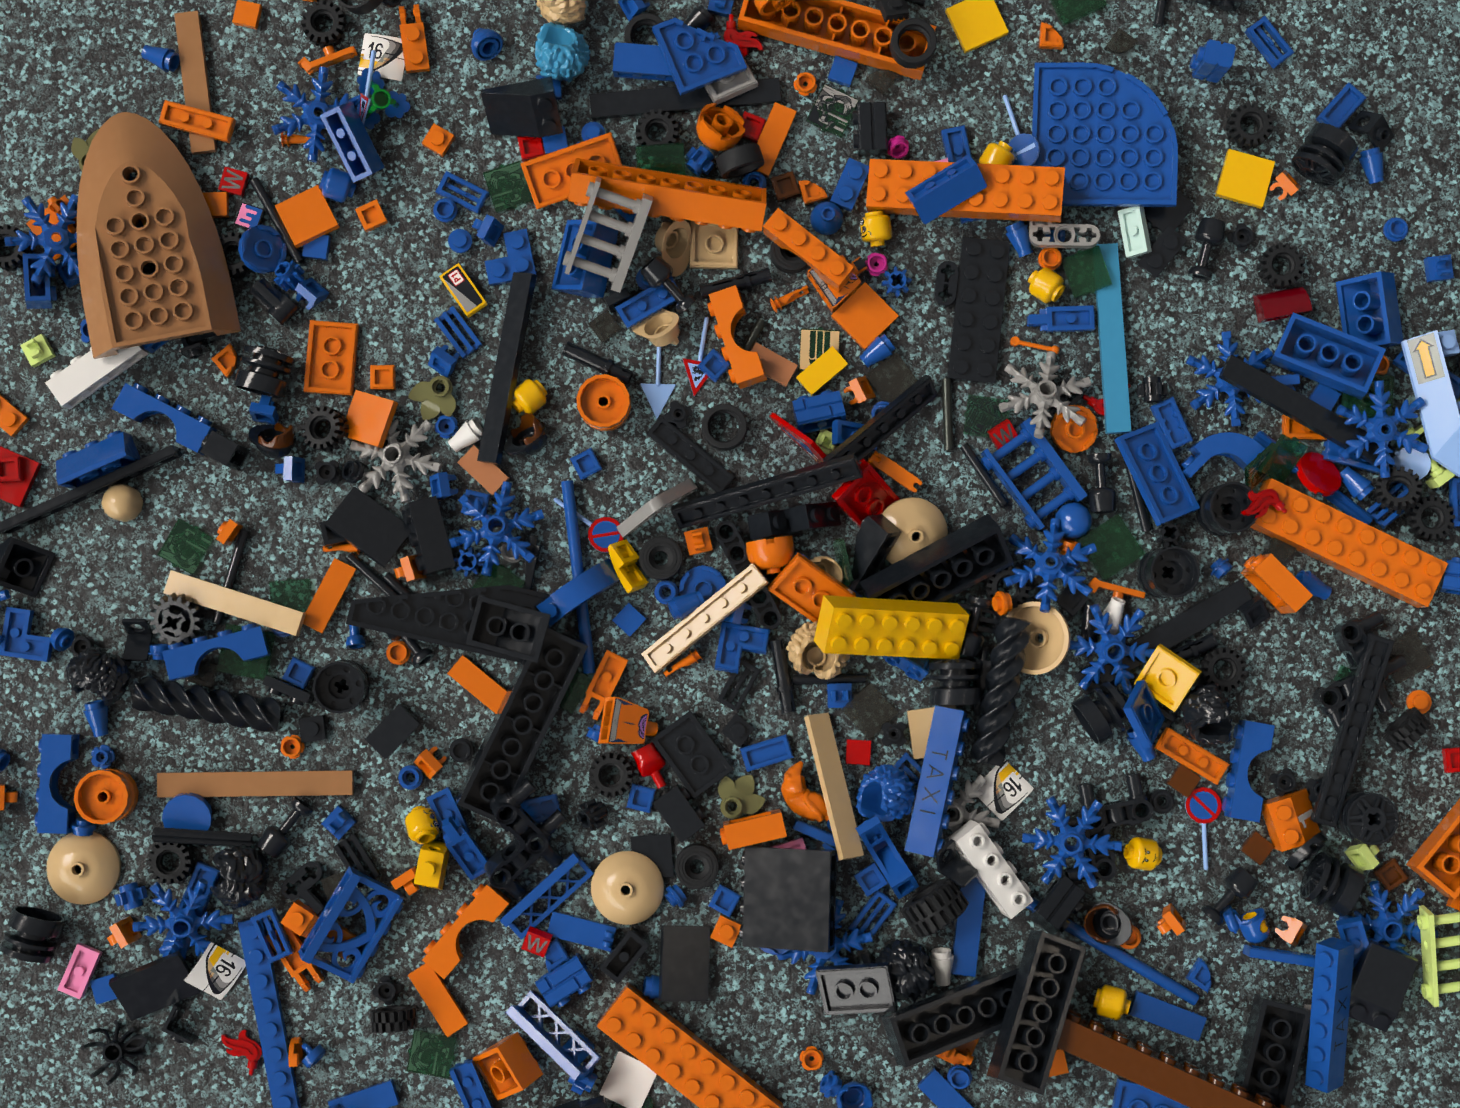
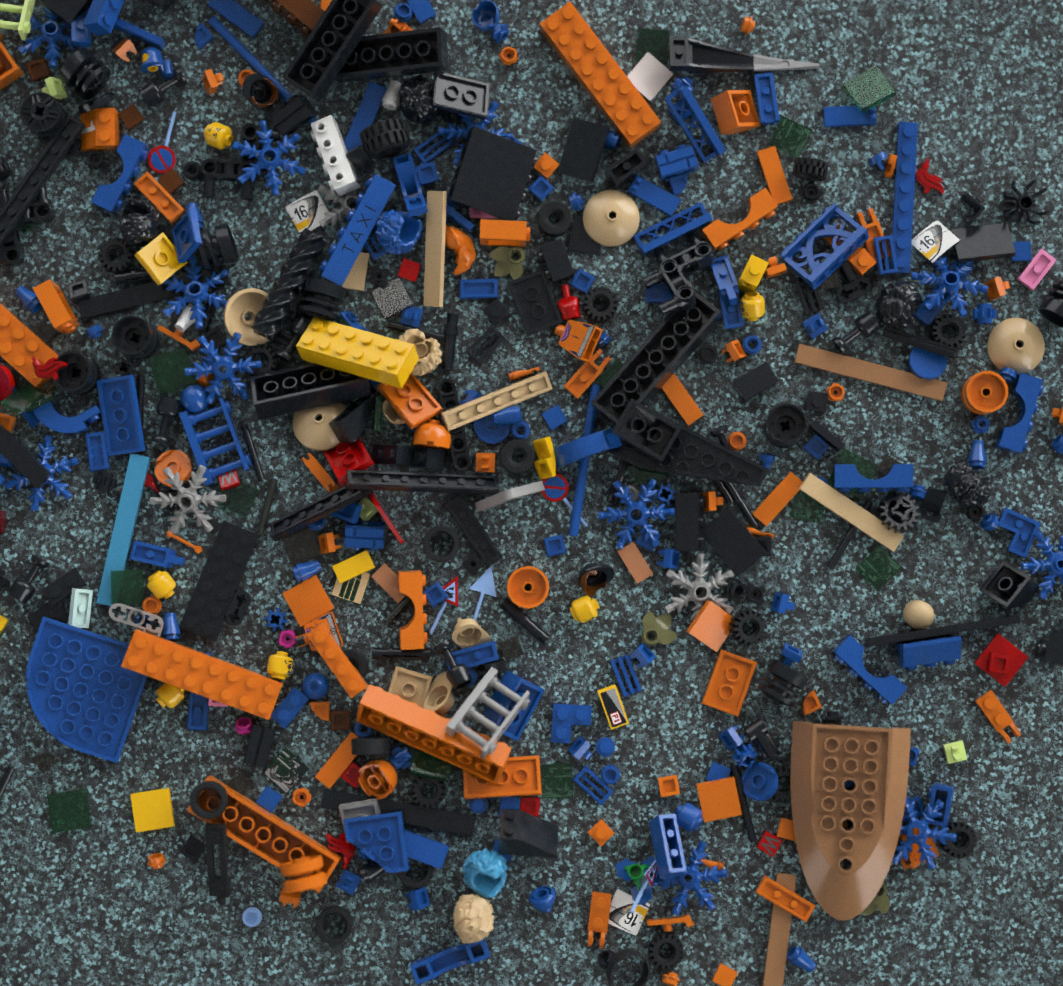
camera: 160 degrees left, 0 degrees up
(90, 374) = (921, 719): white brick -> none
(214, 707) = (886, 438): black piece -> none
(224, 450) = (829, 630): black brick -> none
(228, 531) = (842, 569): orange plate -> none
(249, 216) = (764, 812): tile -> none
(273, 440) = (789, 630): piece -> none
(382, 377) = (693, 656): orange tile -> none
(440, 426) = (654, 599): blue plate -> none
(467, 434) = (640, 592): white cone -> none
(507, 368) = (595, 635): black tile -> none
(536, 941) = (689, 196): red tile -> none
(592, 814) = (622, 278): black gear -> none
(734, 640) = (478, 379): blue tile -> none
(778, 303) = (364, 630): orange piece -> none
(946, 189) = (217, 675): blue panel -> none
(1002, 602) = (268, 349): orange plate -> none
(1024, 146) = (145, 698): blue piece -> none
(1049, 38) = (99, 781): orange tile -> none
(1111, 1002) = (274, 34): yellow head -> none

